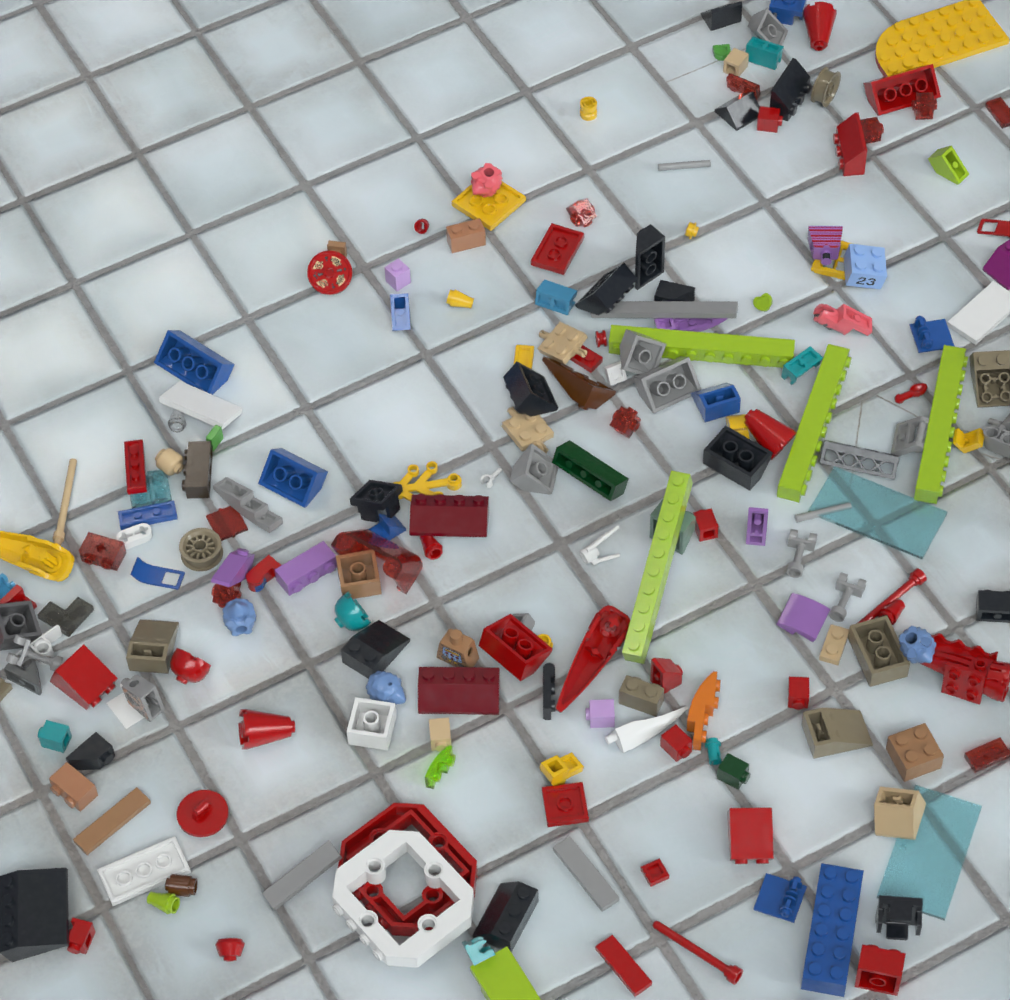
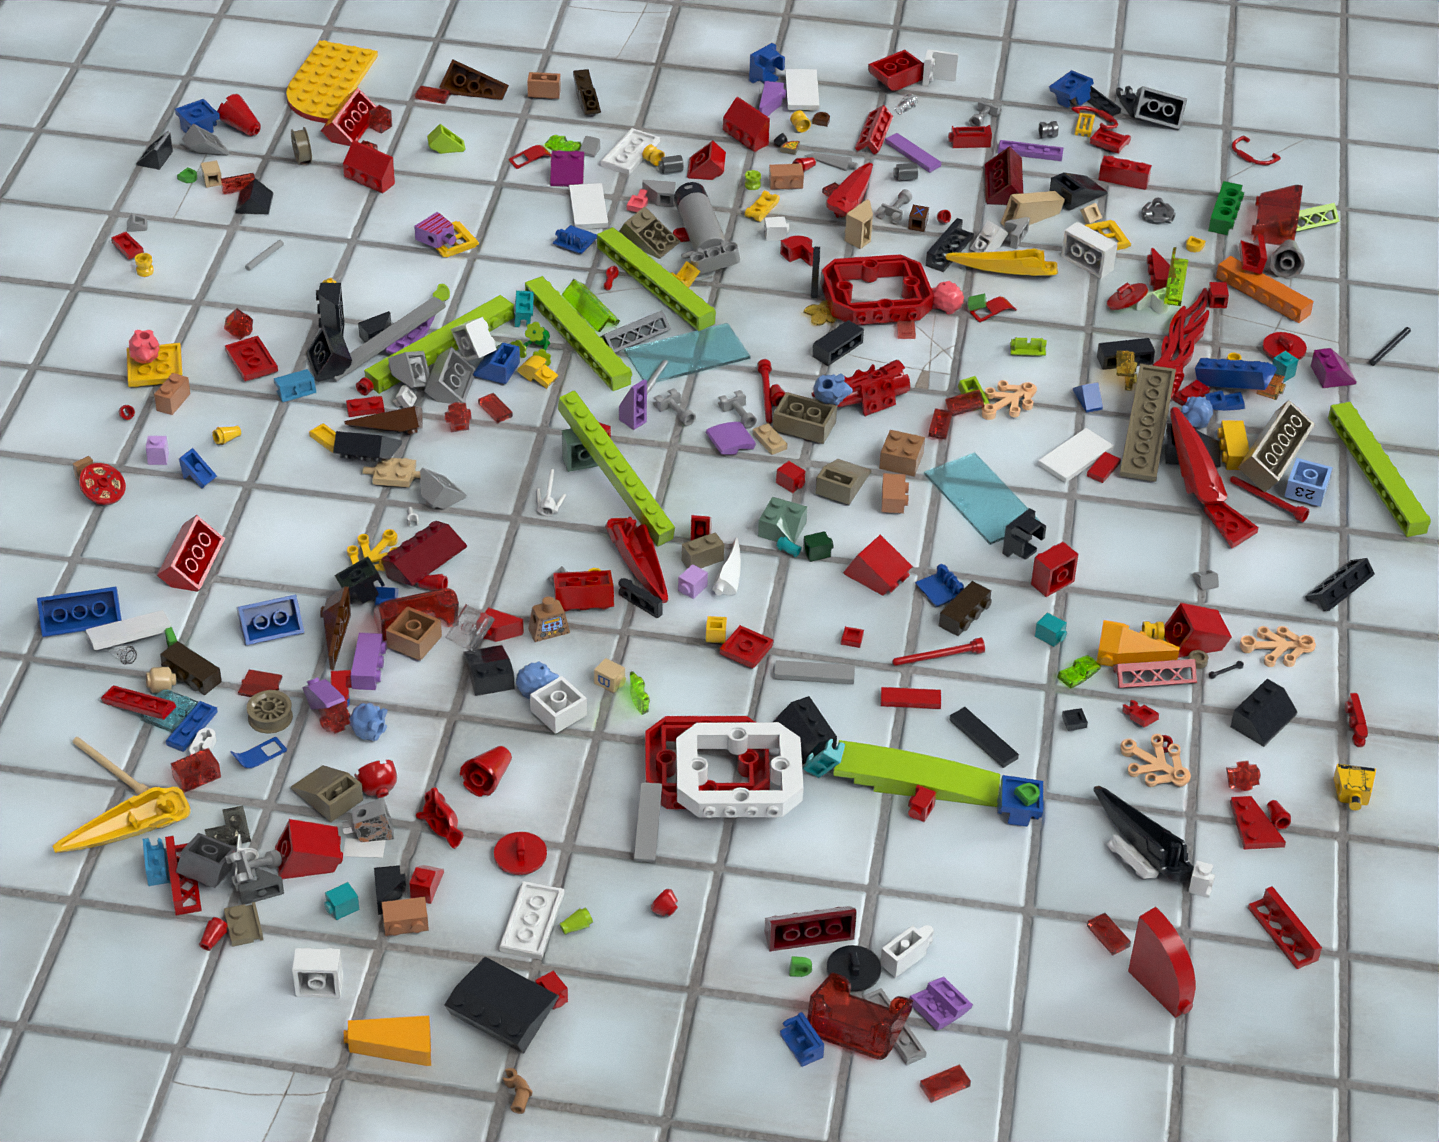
camera: 55 degrees left, 10 degrees down
(111, 821) = (463, 913): medium nougat tile -> none
(120, 773) = (425, 882): none -> red slope
(181, 885) = (574, 900): reddish brown brick -> none
(190, 734) = (441, 817): none -> red animal
(247, 505) = (254, 660): light grey slope -> none
(311, 381) = (191, 555): none -> red slope
(323, 520) = (336, 618): none -> reddish brown wedge
(350, 613) = (443, 657): teal cylinder -> none
(396, 605) = (470, 628): none -> clear tile
(422, 621) = (504, 626): none -> red slope
(459, 690) = (583, 643): dark red slope -> none
(562, 343) = (344, 404): tan plate -> none
(590, 470) = (477, 460): dark green brick -> none
(600, 82) = (127, 245): none -> red plate
(633, 68) = (136, 223): none -> light grey slope
(669, 436) = (495, 407): none -> clear red tile
(676, 743) = (762, 559): red brick -> none
(703, 707) = (748, 533): orange slope -> none
(716, 364) = (474, 339): none -> white brick
(736, 725) = (782, 519): none -> sand green slope
(737, 457) = (560, 379): black slope -> none
(764, 52) = (226, 155): teal hinge -> none
(768, 431) = (566, 352): red cone -> none
(768, 933) = (965, 608): none -> dark brown brick
(769, 119) = (285, 191): red brick -> none
(779, 402) = (540, 337): none -> lime plant
(790, 89) = (278, 165): black slope -> none
(832, 930) = (985, 564): blue brick -> none
(842, 319) = (510, 265): coral plate -> none
(854, 781) = (894, 492): none -> nougat brick
(859, 405) = (589, 305): none -> clear neon green panel
(865, 266) = (481, 226): light blue brick -> none
(898, 812) = (943, 486): tan slope -> none
(904, 436) = (646, 302): light grey plate -> none

